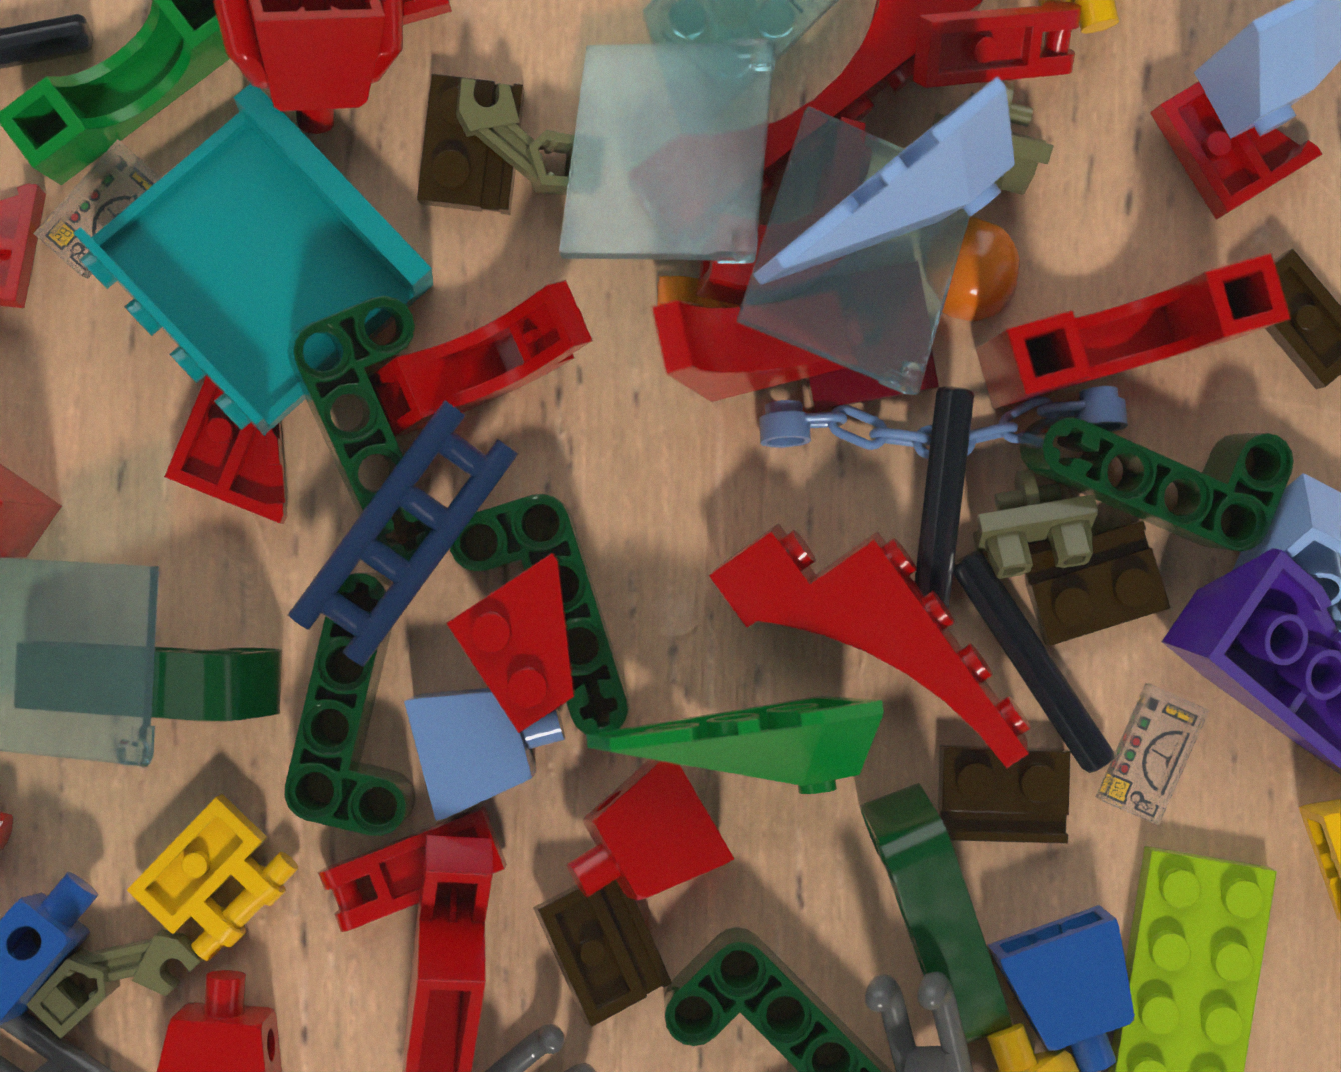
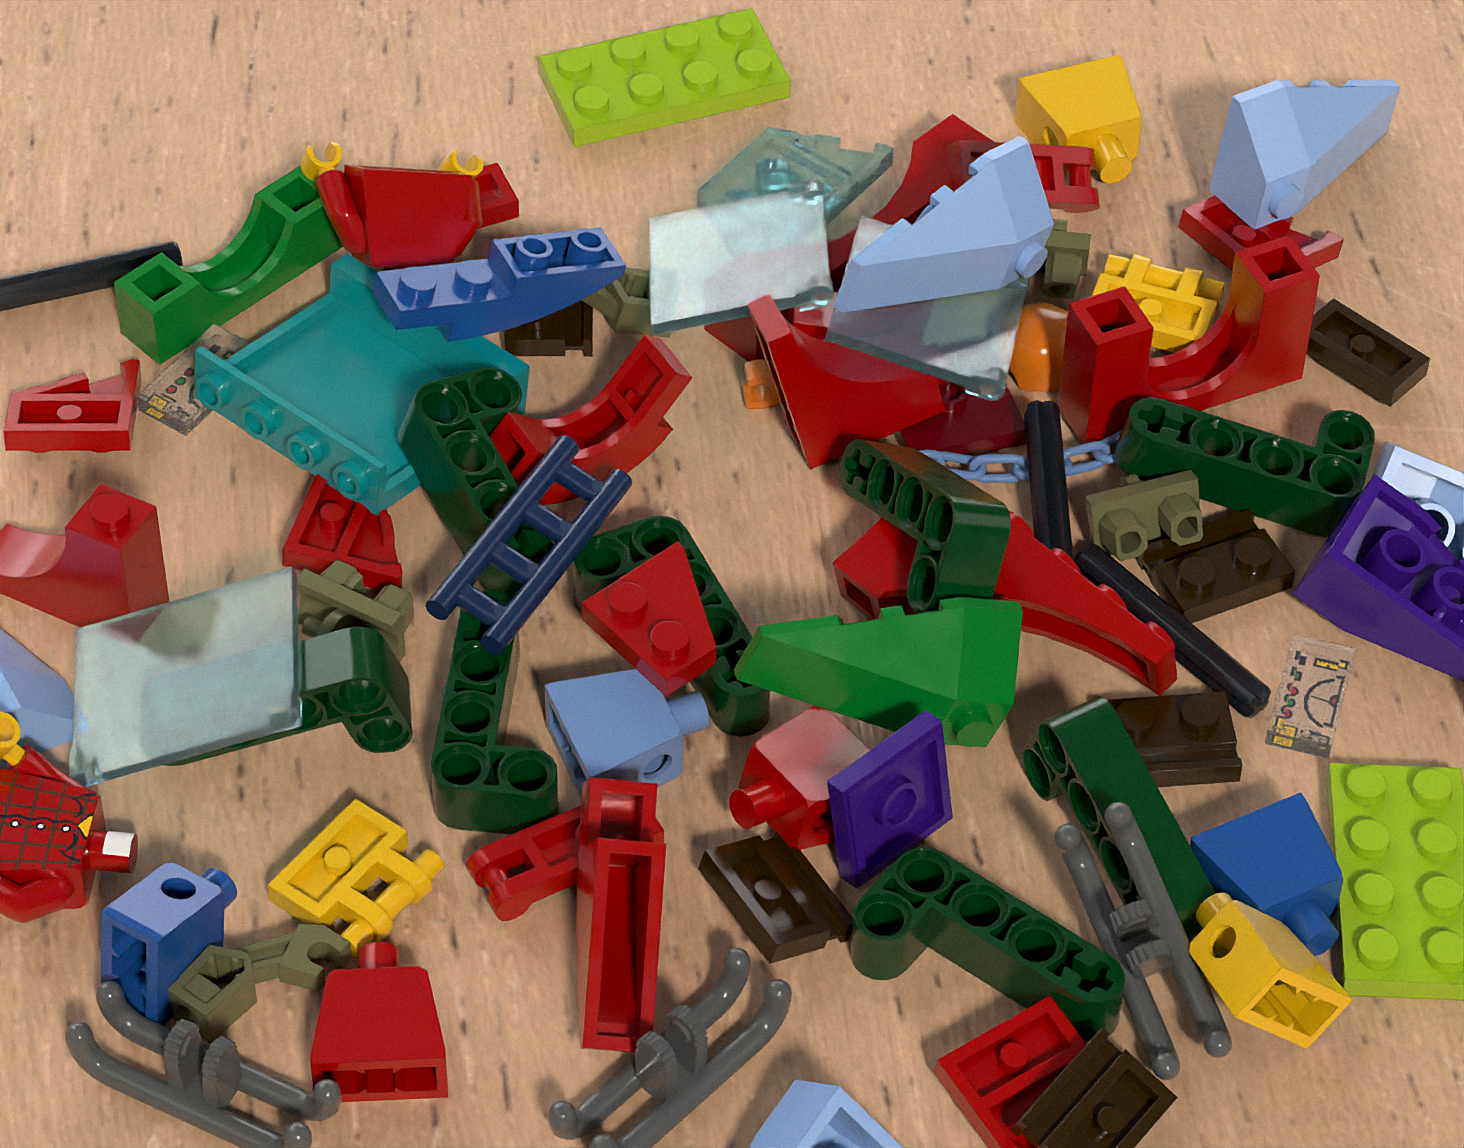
camera: 10 degrees left, 40 degrees down
(209, 544) = (336, 603): none -> olive hips
(404, 172) = (512, 287): none -> blue slope
(719, 885) = (890, 799): none -> dark purple tile
(816, 564) = (956, 524): none -> dark green beam
(1096, 240) = (1174, 301): none -> yellow plate

